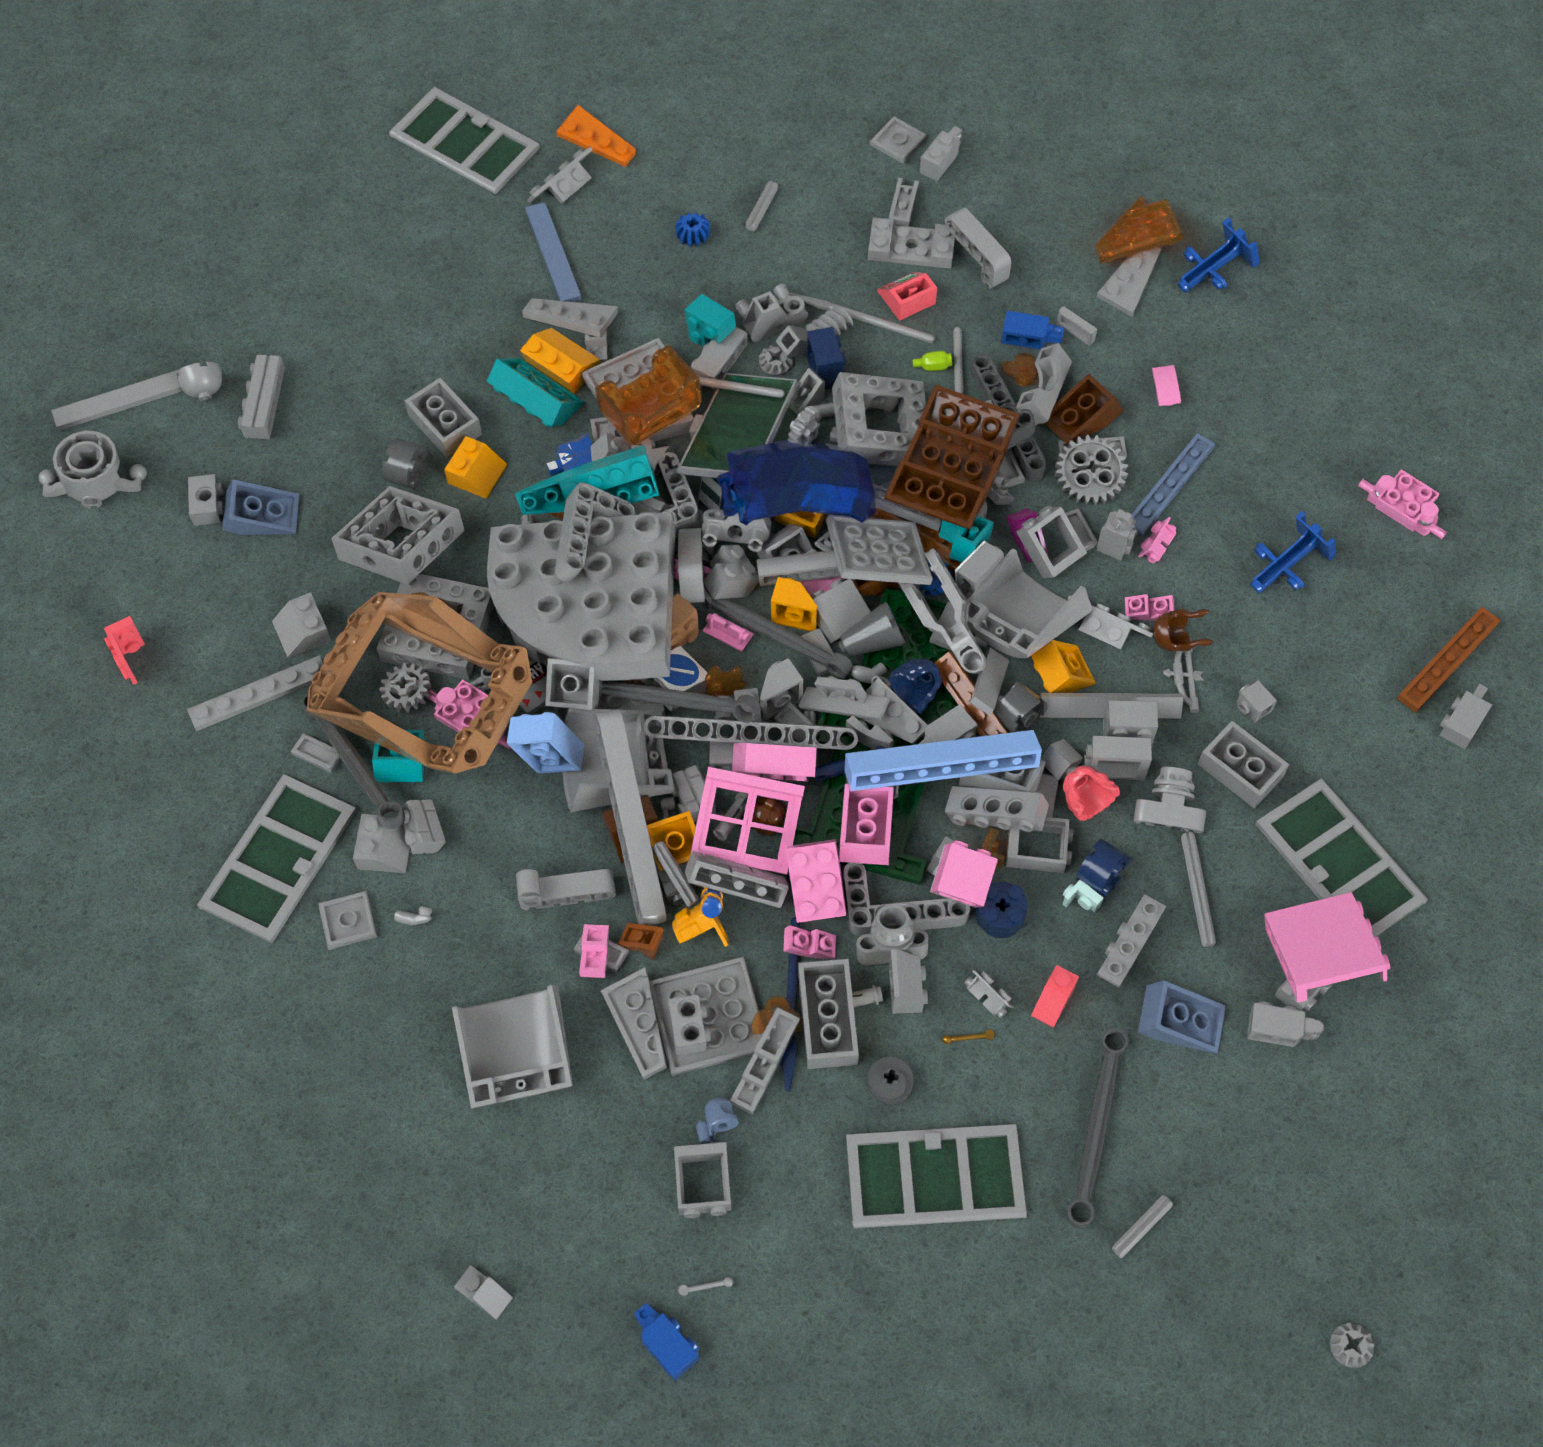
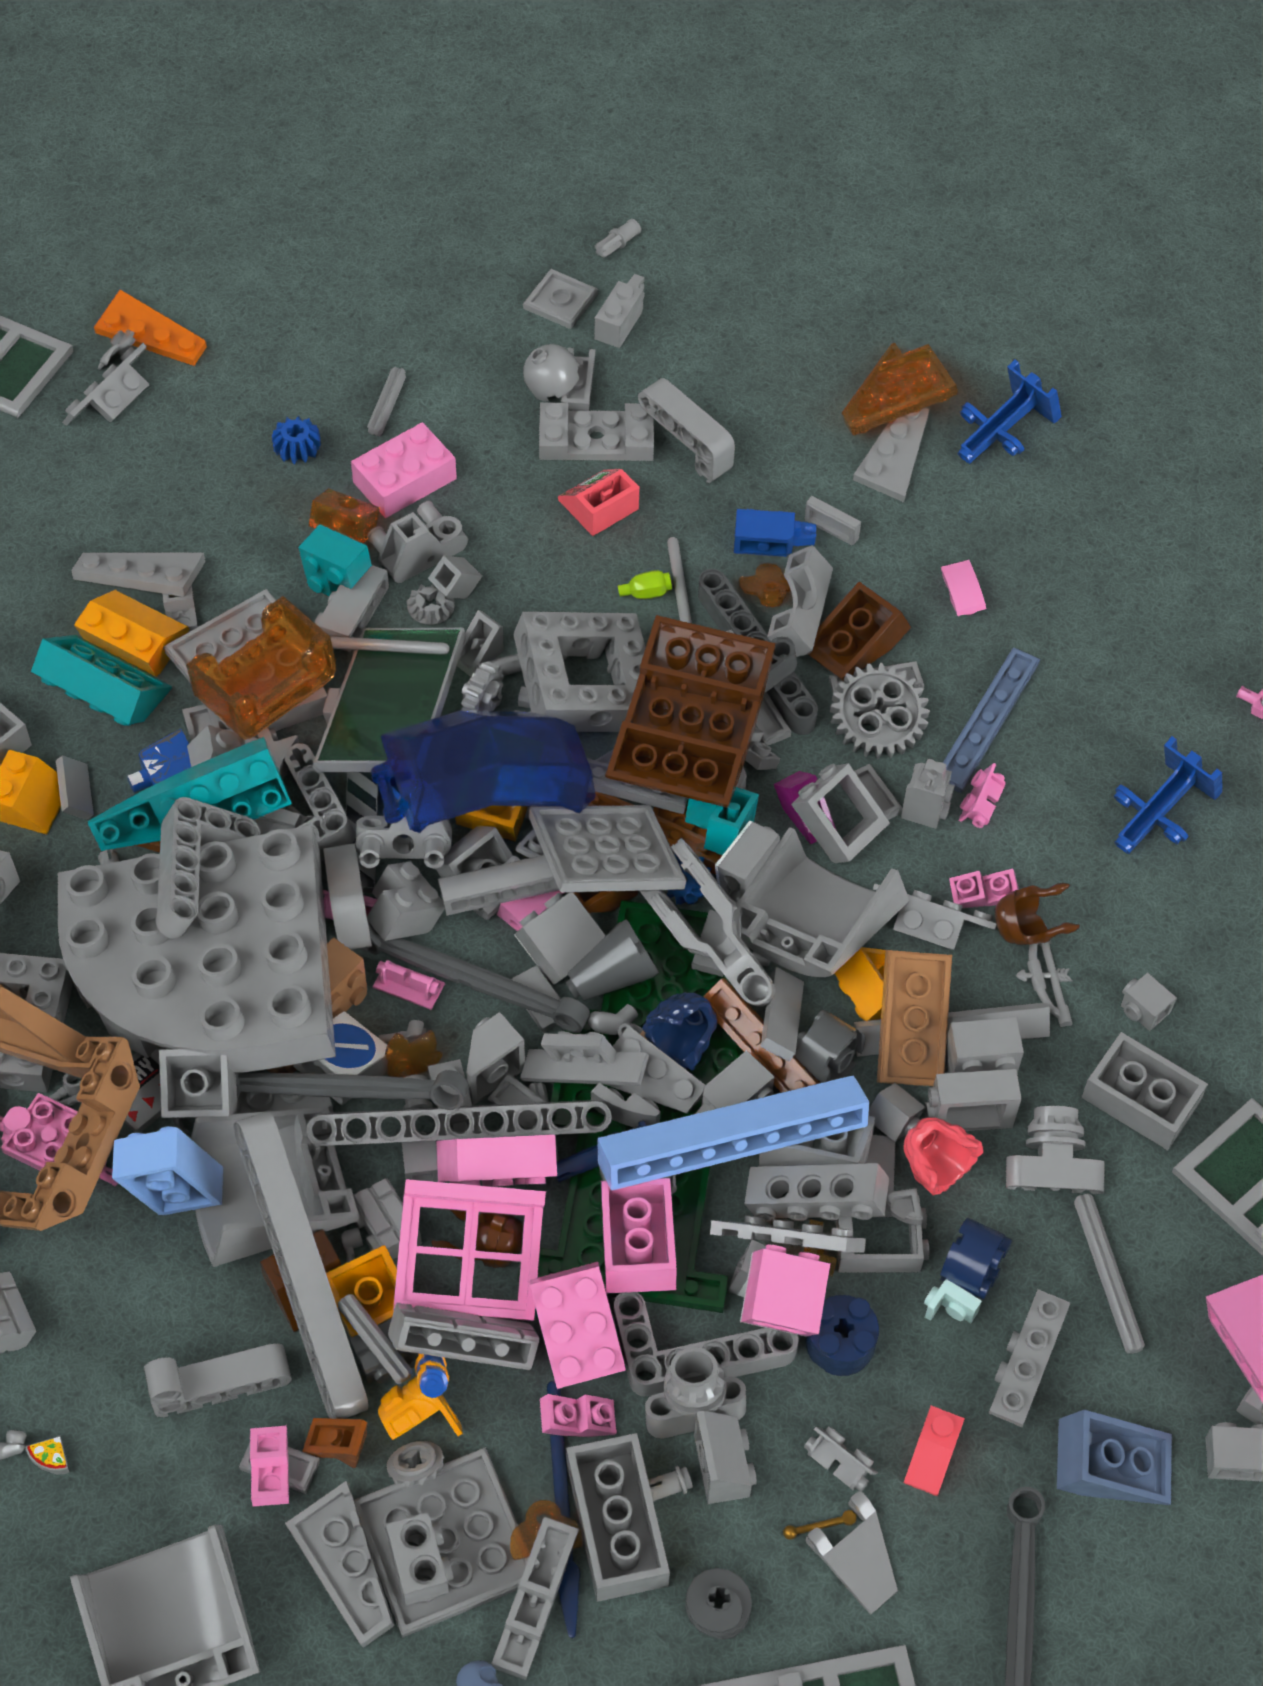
camera: 10 degrees left, 5 degrees down
(446, 926) = (49, 1455): none -> tile
(509, 467) = (74, 787): none -> light grey tile
(553, 253) = (106, 489): sand blue tile -> none
(574, 144) = (121, 343): none -> light grey plate
(687, 963) = (404, 1458): none -> light grey gear
(720, 288) = (344, 514): none -> clear orange brick
(729, 663) = (414, 1031): none -> light grey hand
(737, 809) = (449, 1239): light grey pin -> none
(768, 258) = (404, 469): none -> bright pink brick
(793, 605) = (496, 938): light orange slope -> none
(825, 355) = (498, 590): dark blue brick -> none
(826, 305) = (549, 537): light grey piece -> none
(836, 318) = (498, 552): light grey piece -> none
(883, 195) = (550, 371): none -> light grey cylinder
(946, 97) = (618, 238): none -> light grey axle
(970, 834) = (785, 1233): none -> light grey wing
(993, 1063) = (860, 1557): none -> light grey flag
(1058, 825) = (905, 1206): none -> light grey tile
(1083, 694) = (914, 1017): none -> medium nougat tile

